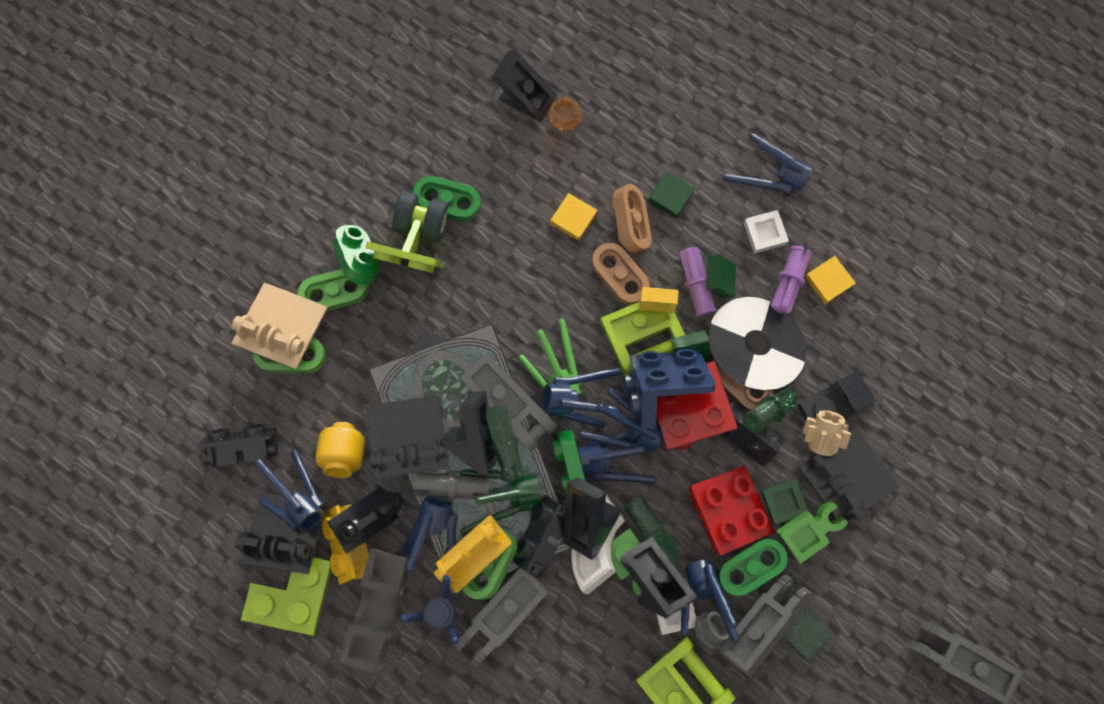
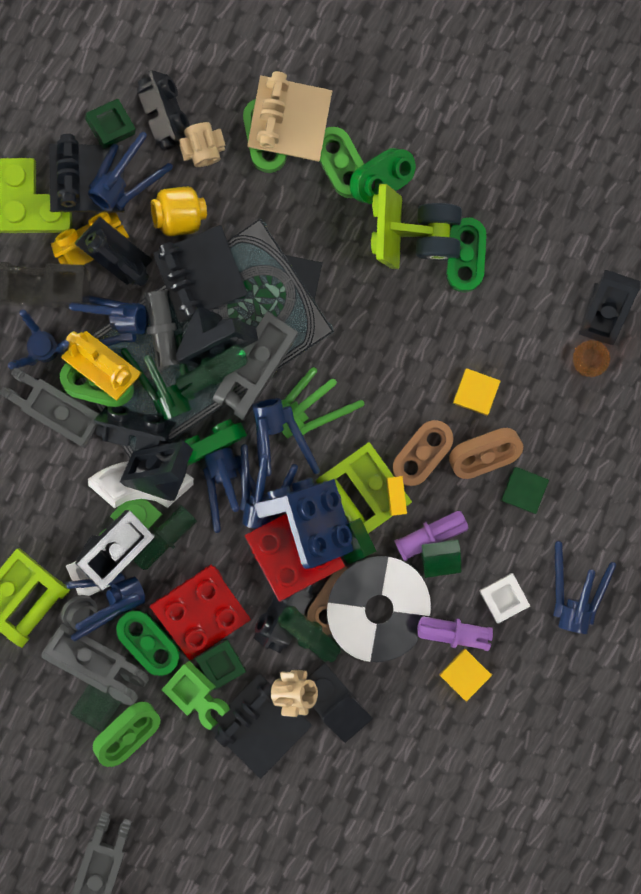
camera: 80 degrees right, 10 degrees up
(237, 499) = (110, 123): none -> dark green tile
(282, 413) = (202, 144): none -> tan gear
(838, 608) = (126, 734): none -> bright green plate

